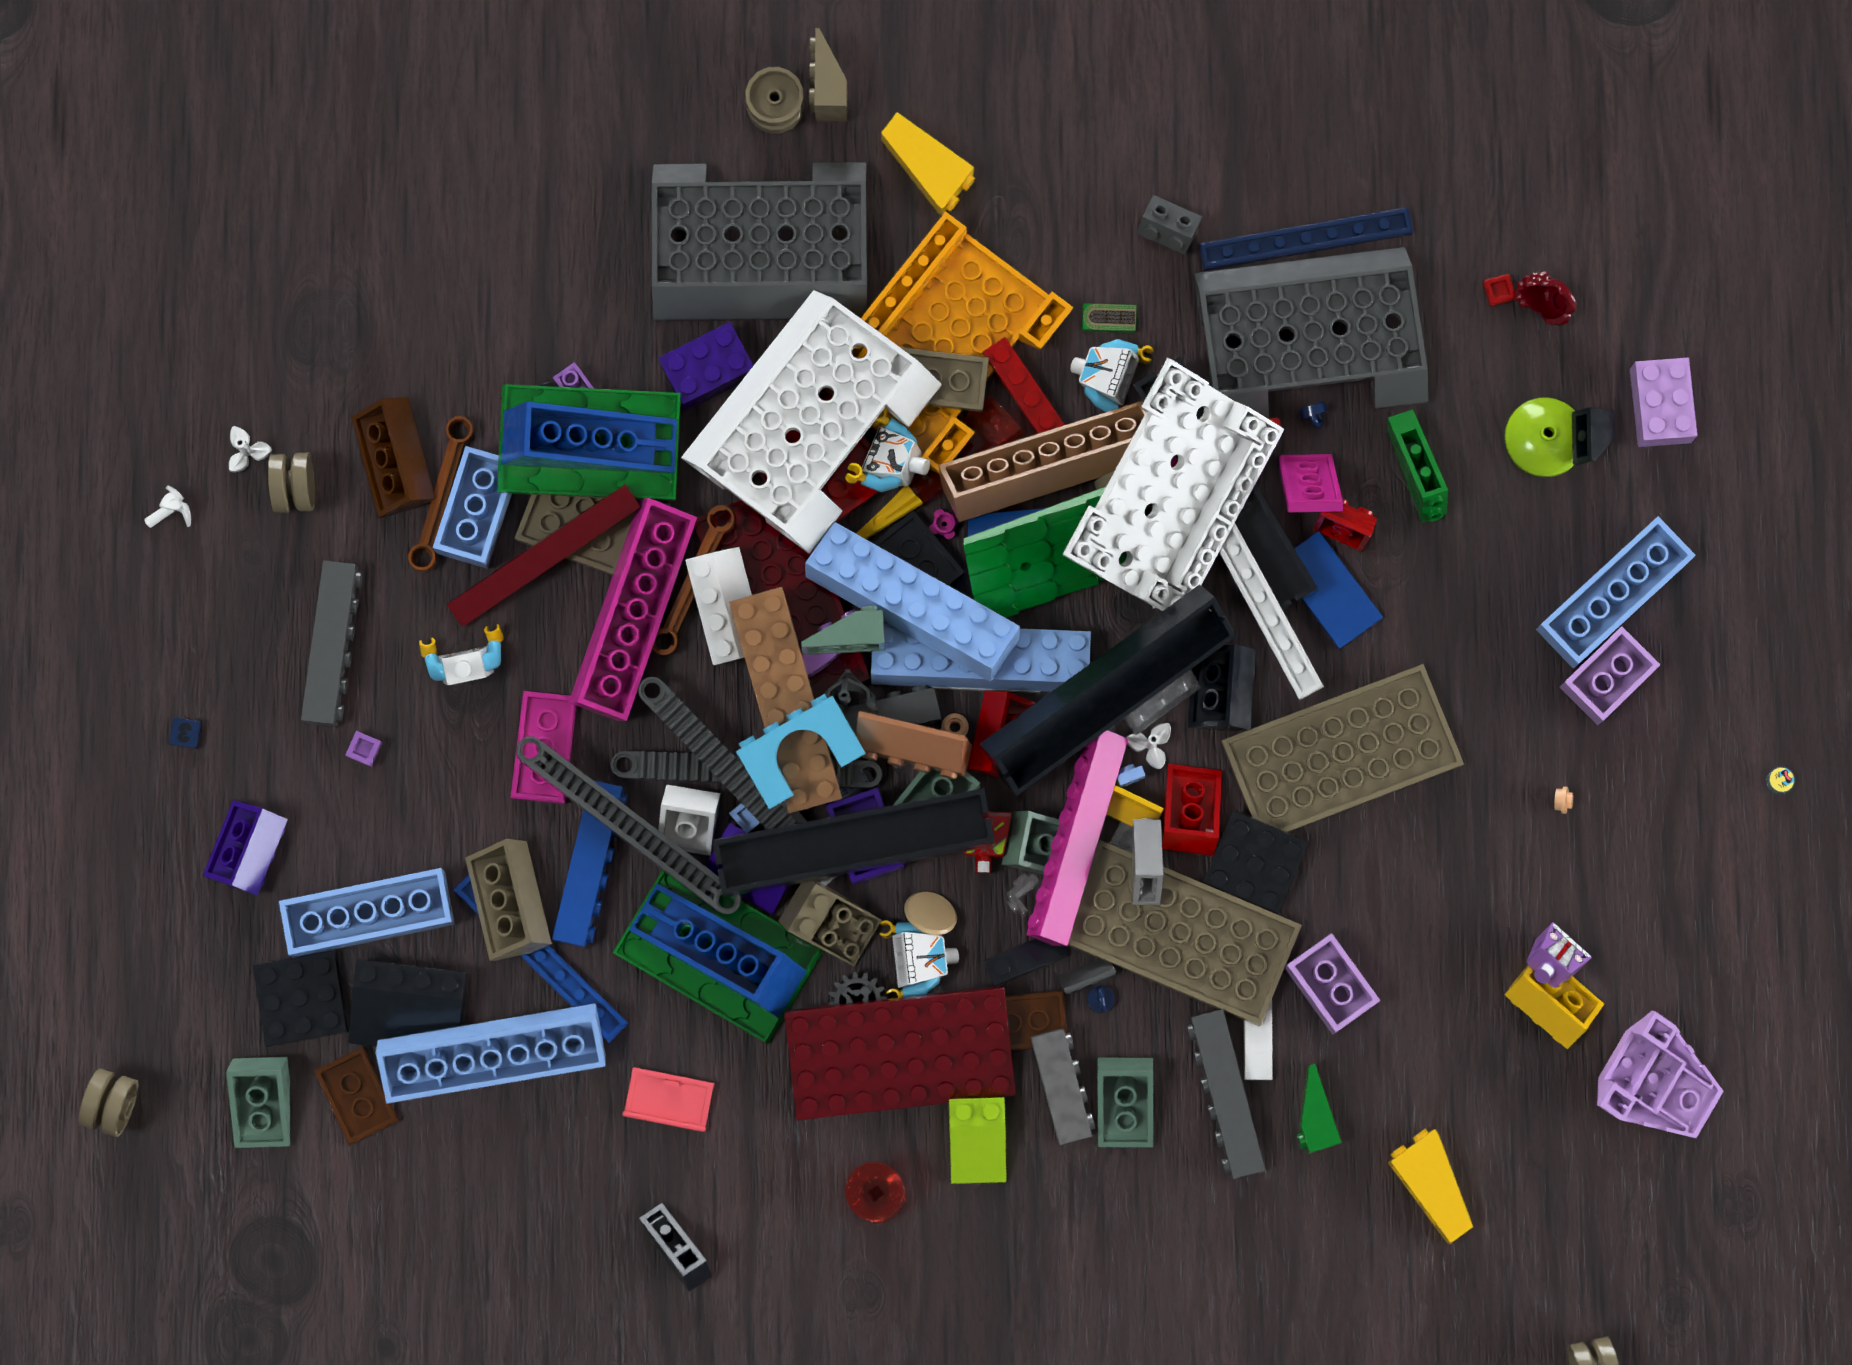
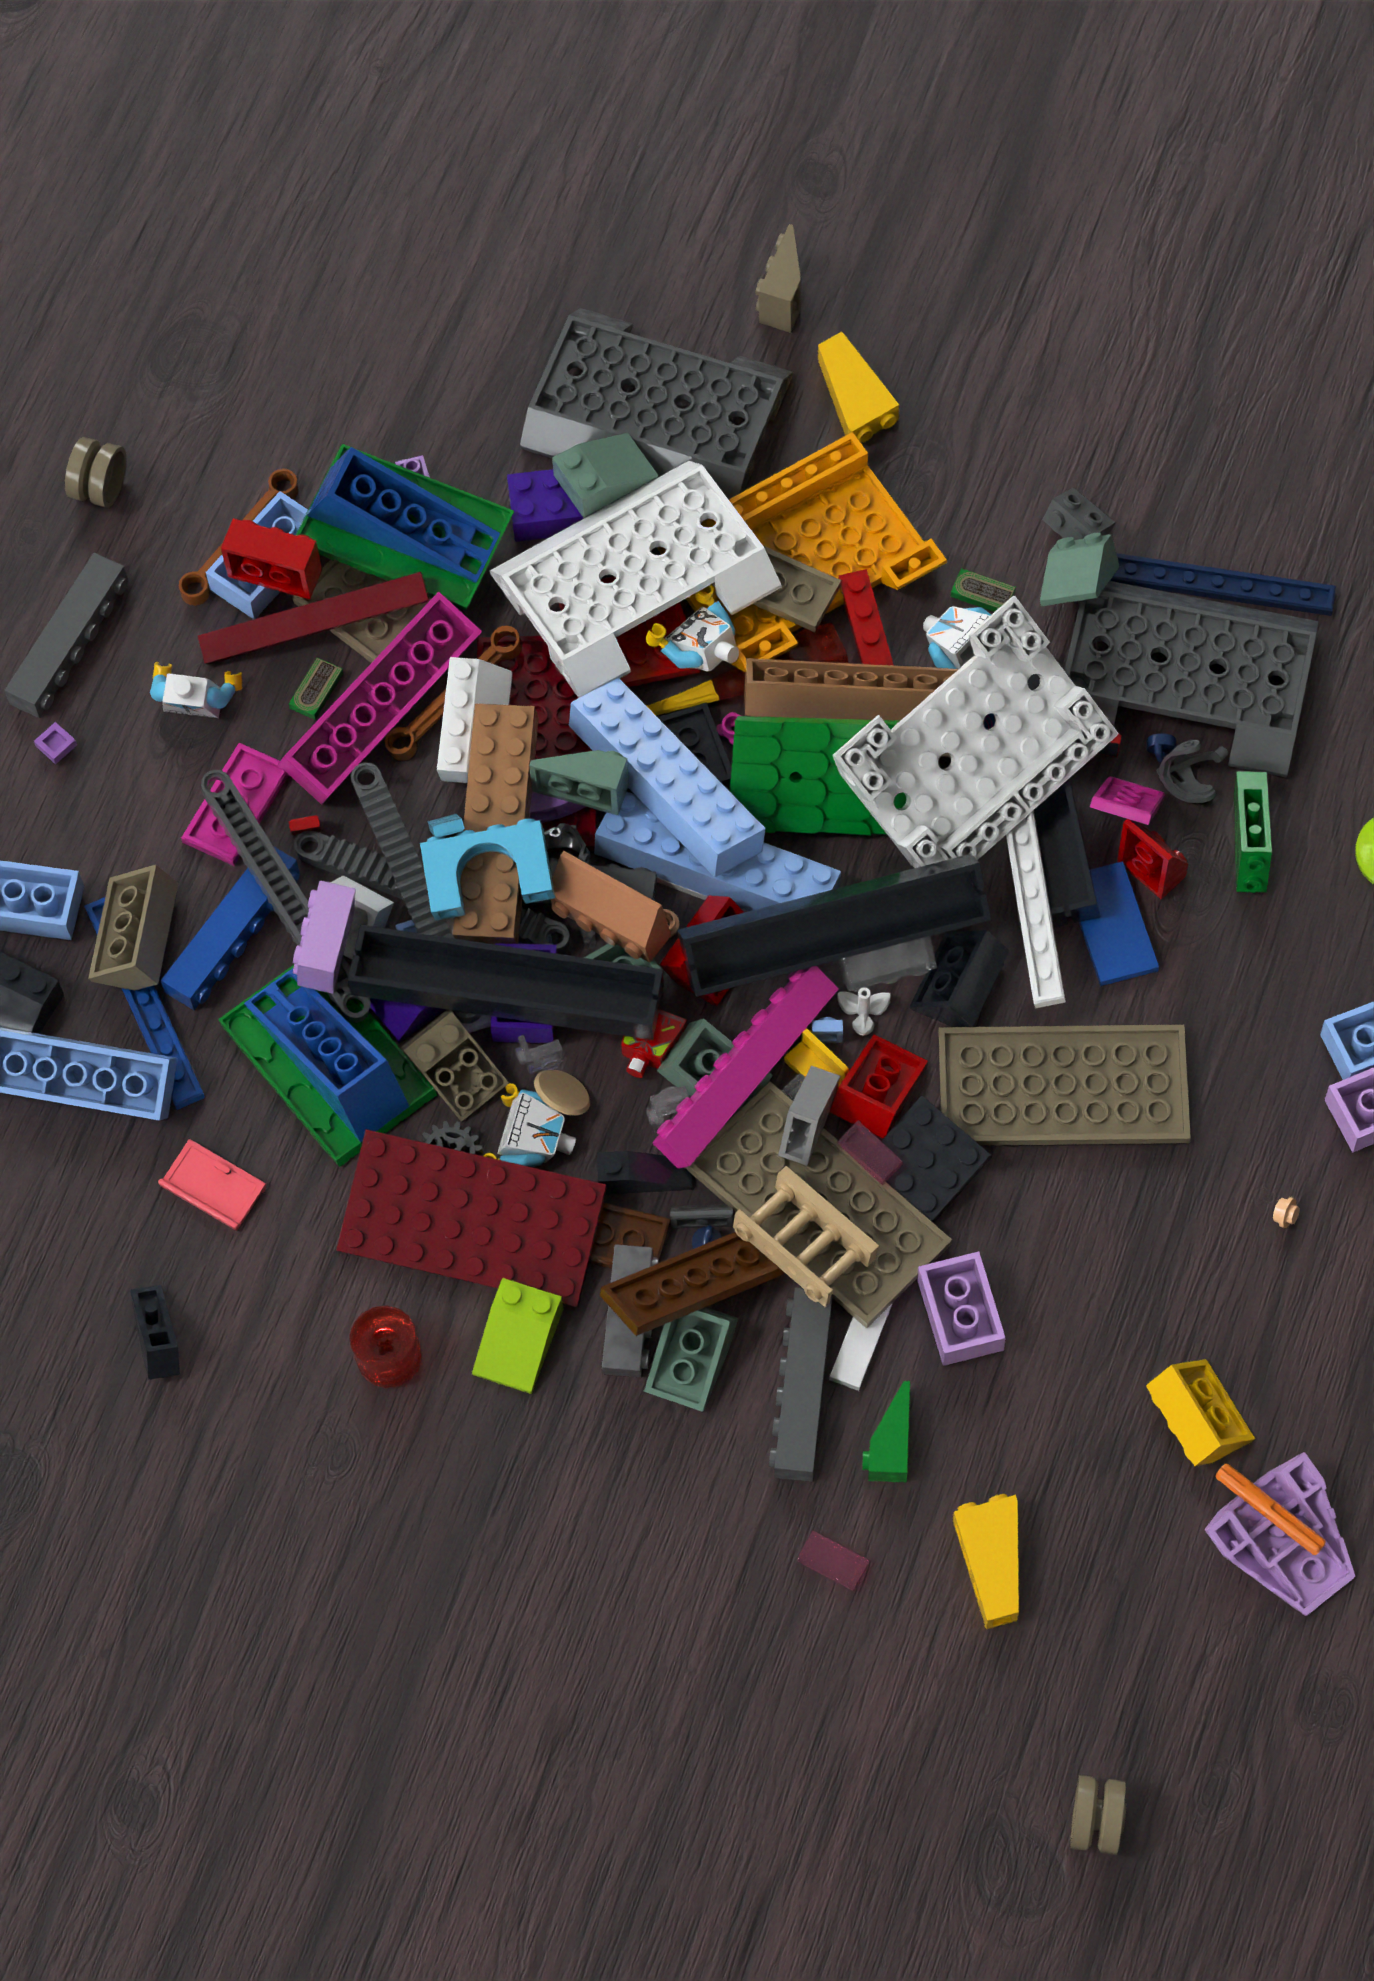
camera: 25 degrees right, 15 degrees down
(240, 440) = (65, 427): white plant -> none
(393, 456) = (207, 485): reddish brown slope -> none
(491, 520) = (271, 558): none -> red brick
(568, 615) = (316, 688): none -> tile
(613, 748) = (304, 824): none -> red tile
(683, 858) = (324, 936): none -> lavender brick
(742, 715) = (446, 825): none -> medium azure tile
(745, 329) = (602, 472): none -> sand green slope
(778, 115) = (724, 285): dark tan wheel -> none
(904, 887) = (541, 1057): none -> clear bracket
(1109, 1045) = (688, 1283): none -> reddish brown plate
(1190, 279) = (1078, 569): none -> sand green slope
(1206, 956) = (812, 1208): none -> tan fence
(1208, 875) = (870, 1152): none -> clear pink tile
(1305, 1233) = (833, 1560): none -> clear pink tile
(1350, 442) = (1190, 789): none -> dark grey helmet
(1556, 957) = (1218, 1366): medium lavender torso -> none
(1642, 1066) = (1270, 1509): none -> orange axle

